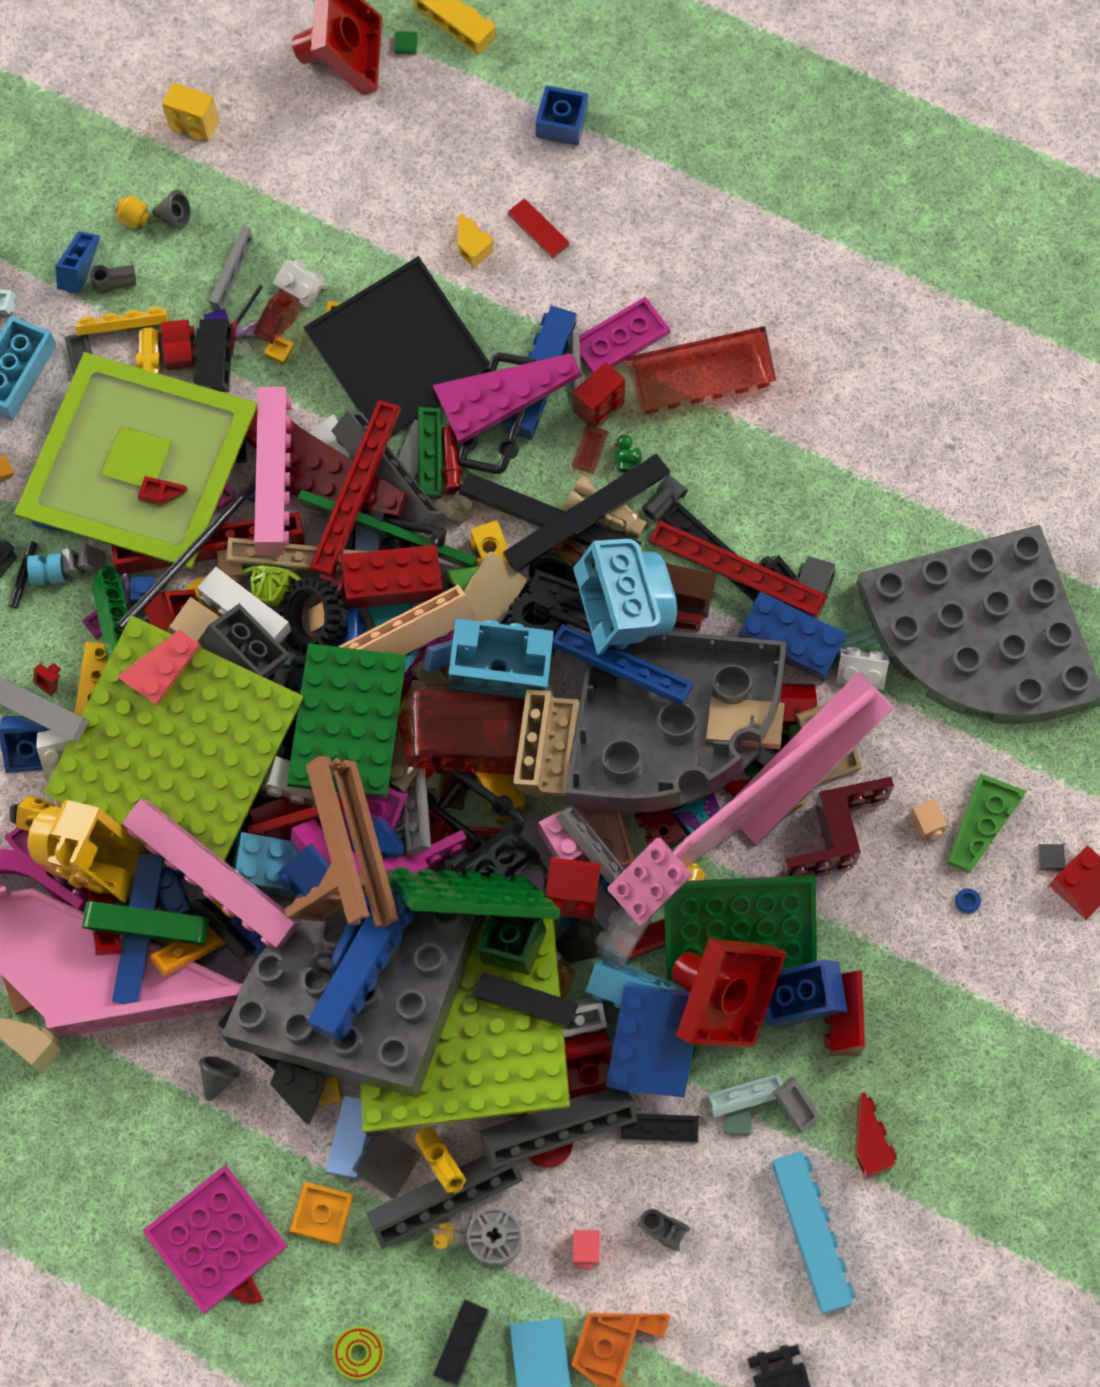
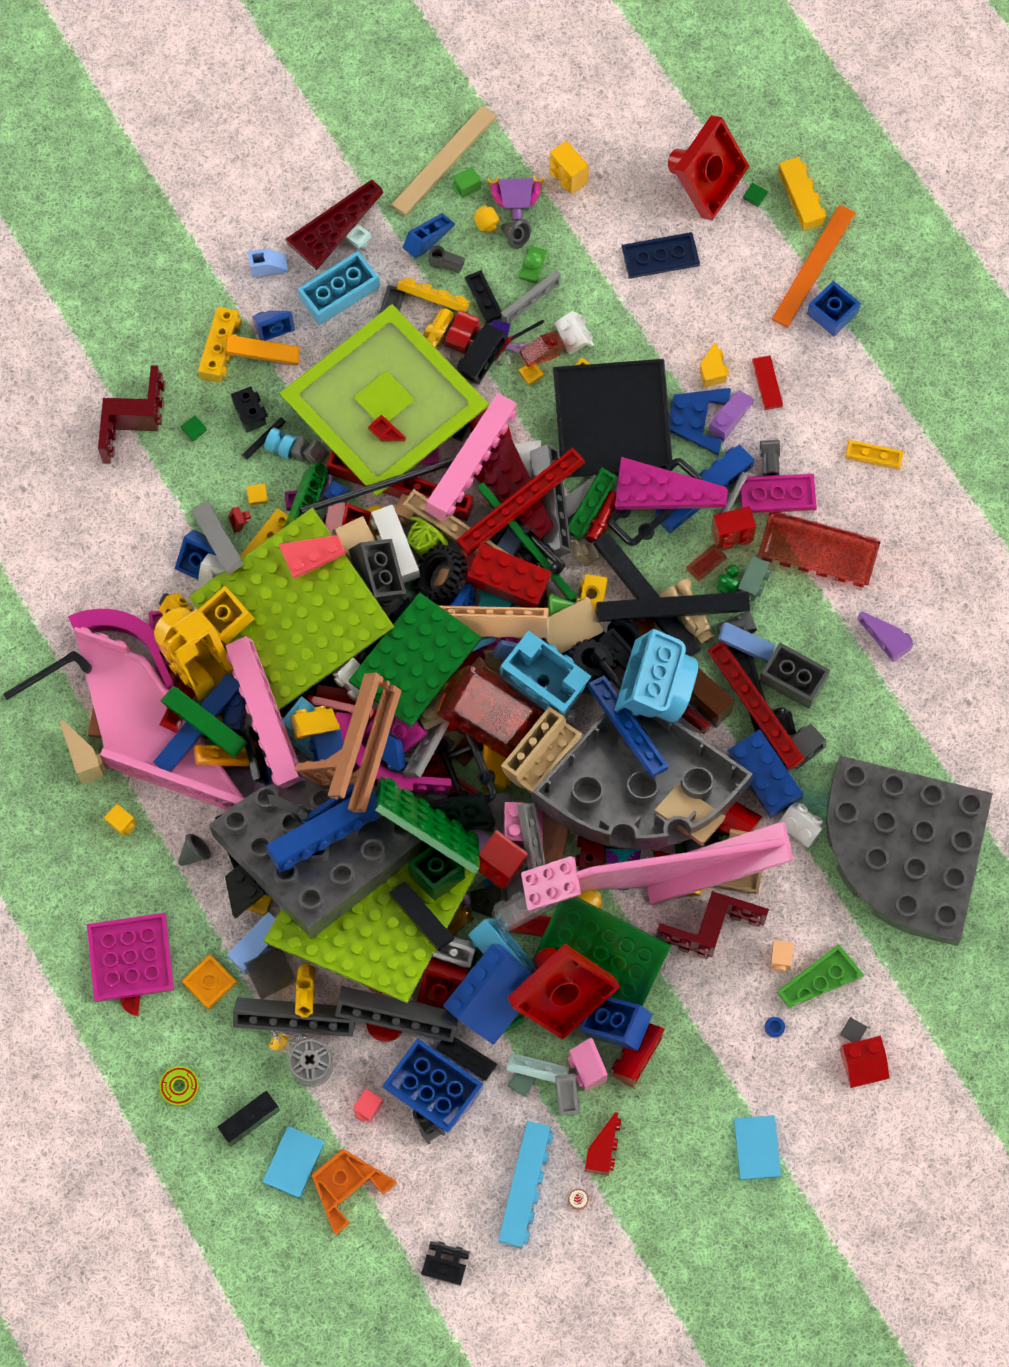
camera: 30 degrees right, 0 degrees up
(47, 176) = (443, 161): none -> tan tile
(52, 640) = (257, 494): none -> yellow tile
(87, 184) = (466, 182): none -> bright green brick
(103, 787) = (226, 614): none -> yellow brick
(111, 1089) = (120, 820): none -> yellow brick
(148, 169) = (516, 194): none -> medium lavender torso
(178, 295) = (483, 296): none -> black tile
(211, 234) = (533, 264): none -> bright green tile
(275, 853) = (312, 723): none -> yellow slope
(343, 155) = (660, 255): none -> dark blue tile
(478, 305) = (689, 416): none -> blue wing
(512, 85) = (813, 266): none -> orange tile
(521, 282) = (730, 415): none -> medium lavender slope
(588, 300) = (770, 457): none -> dark grey piece
(647, 1182) = (433, 1086): none -> blue slope
(650, 435) = (754, 576): none -> sand green brick
(686, 508) = (746, 642): none -> medium blue tile
(695, 244) = (874, 454): none -> yellow tile
(758, 515) = (794, 675): none -> dark grey brick
(799, 1058) = (587, 1065): none -> bright pink slope
(828, 423) = (888, 637): none -> medium lavender slope
(877, 1213) = (578, 1199): none -> tile
(1031, 1042) = (757, 1147): none -> medium azure tile

